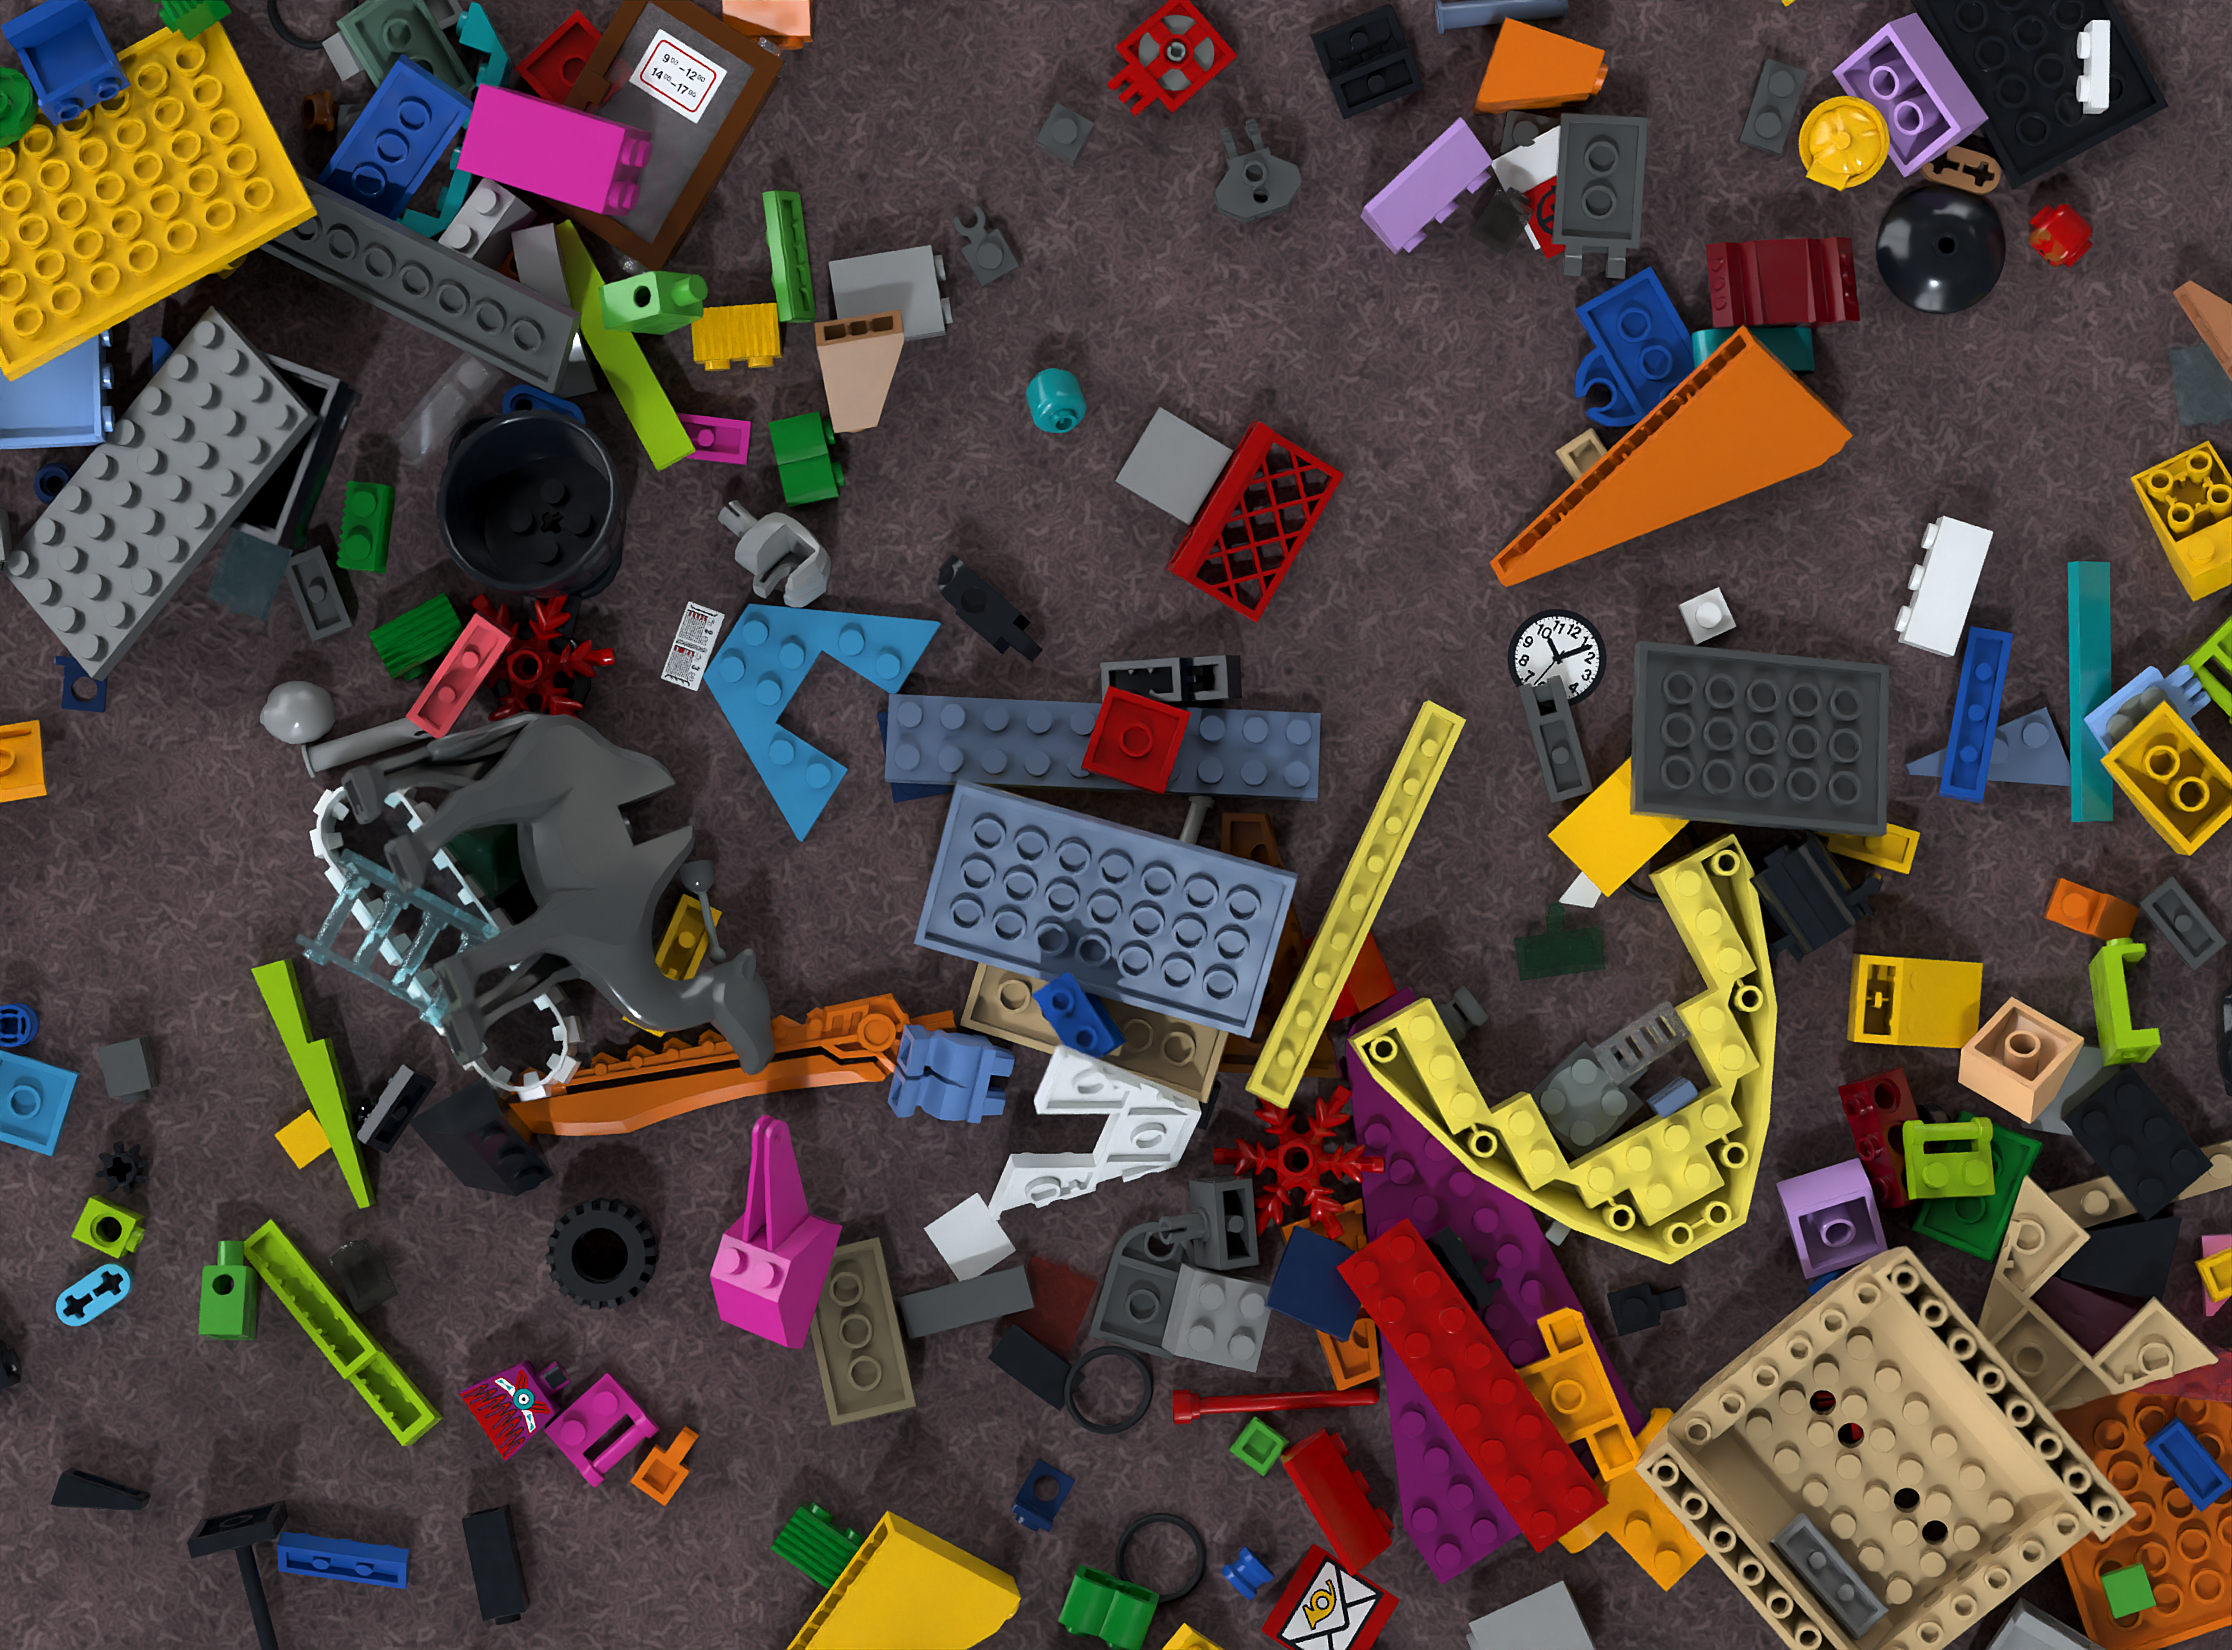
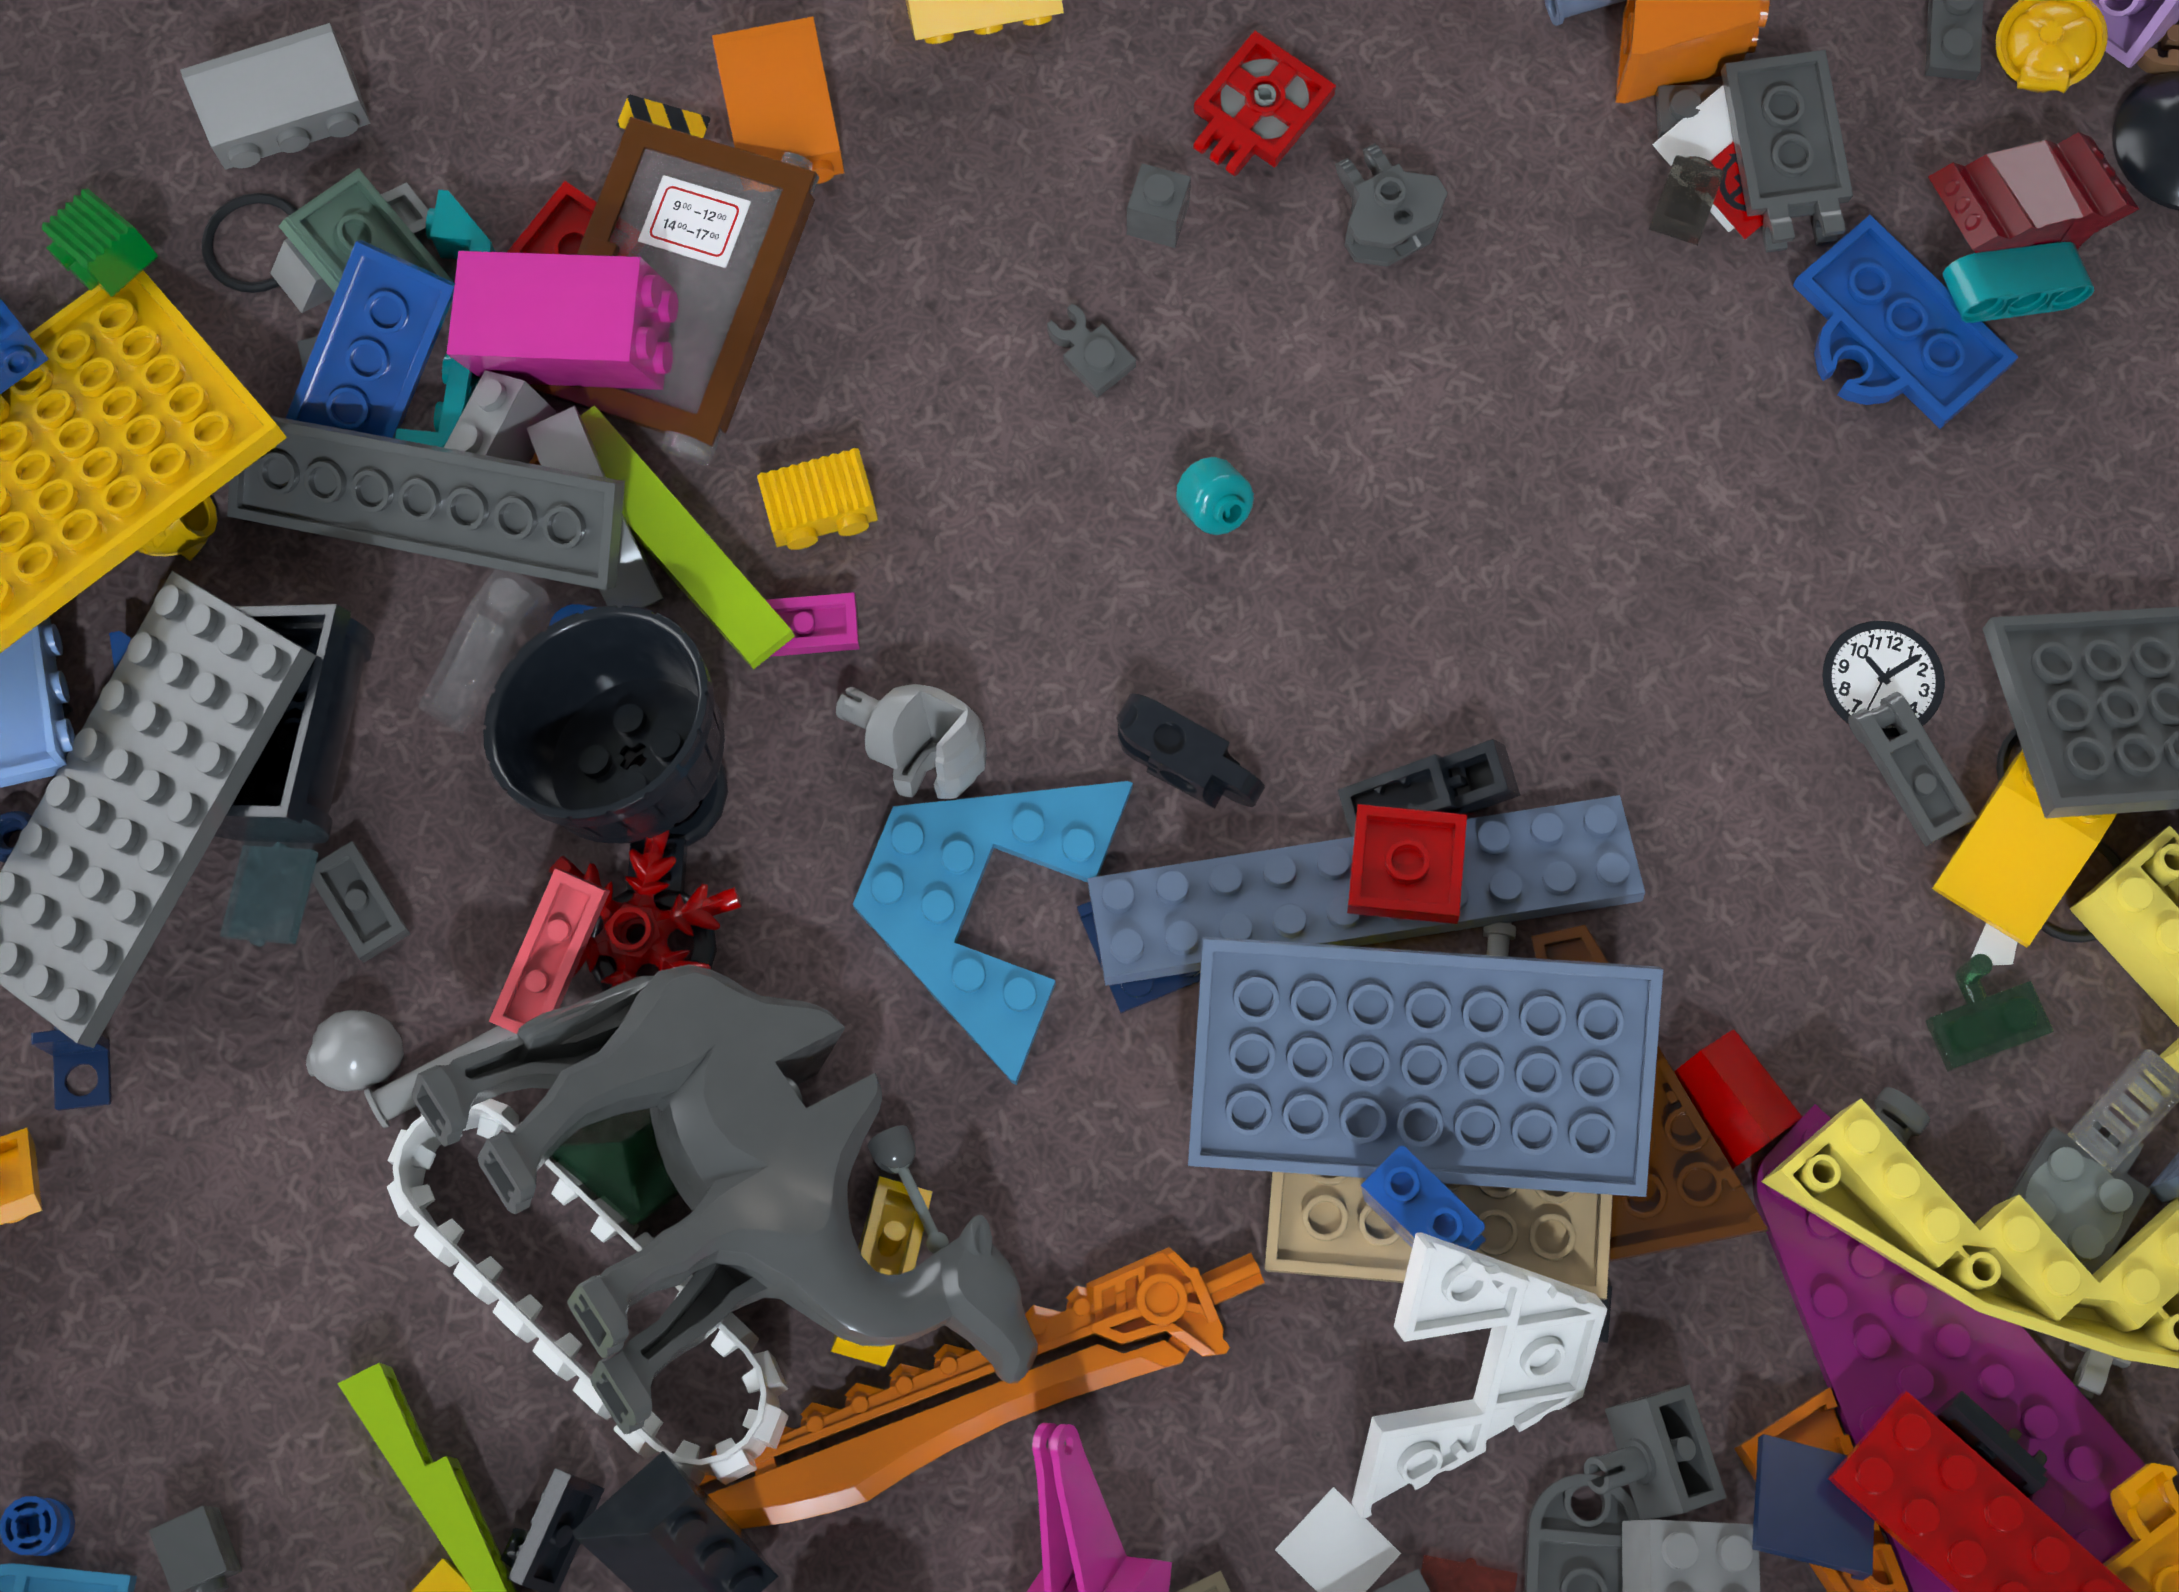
camera: 10 degrees left, 15 degrees down
(319, 112) = (279, 351): reddish brown plate -> none
(366, 527) = (405, 807): green brick -> none
(418, 637) = (488, 927): green brick -> none
(437, 916) = (511, 1234): clear light blue fence -> none
(672, 305) = (712, 469): bright green torso -> none
(692, 646) = (833, 875): white sticker -> none
(789, 256) = (863, 401): bright green plate -> none
(805, 459) = (929, 624): green brick -> none
(858, 366) = (972, 497): medium nougat slope -> none
(894, 282) = (991, 422): light grey brick -> none
(958, 1075) = (1286, 1338): medium blue hips -> none
(1174, 466) = (1371, 548): light grey tile -> none
(1221, 504) = (1437, 581): red fence -> none
(1308, 1178) = (1746, 1332): red piece -> none
(1355, 905) = (1729, 1017): light yellow plate -> none
(1366, 61) = (1483, 68): black slope -> none
(1428, 188) = (1591, 176): lavender slope -> none
(1581, 453) = (1852, 443): tan tile -> none
(1707, 615) = (2048, 589): white plate -> none
(1712, 439) = (2007, 376): orange slope -> none

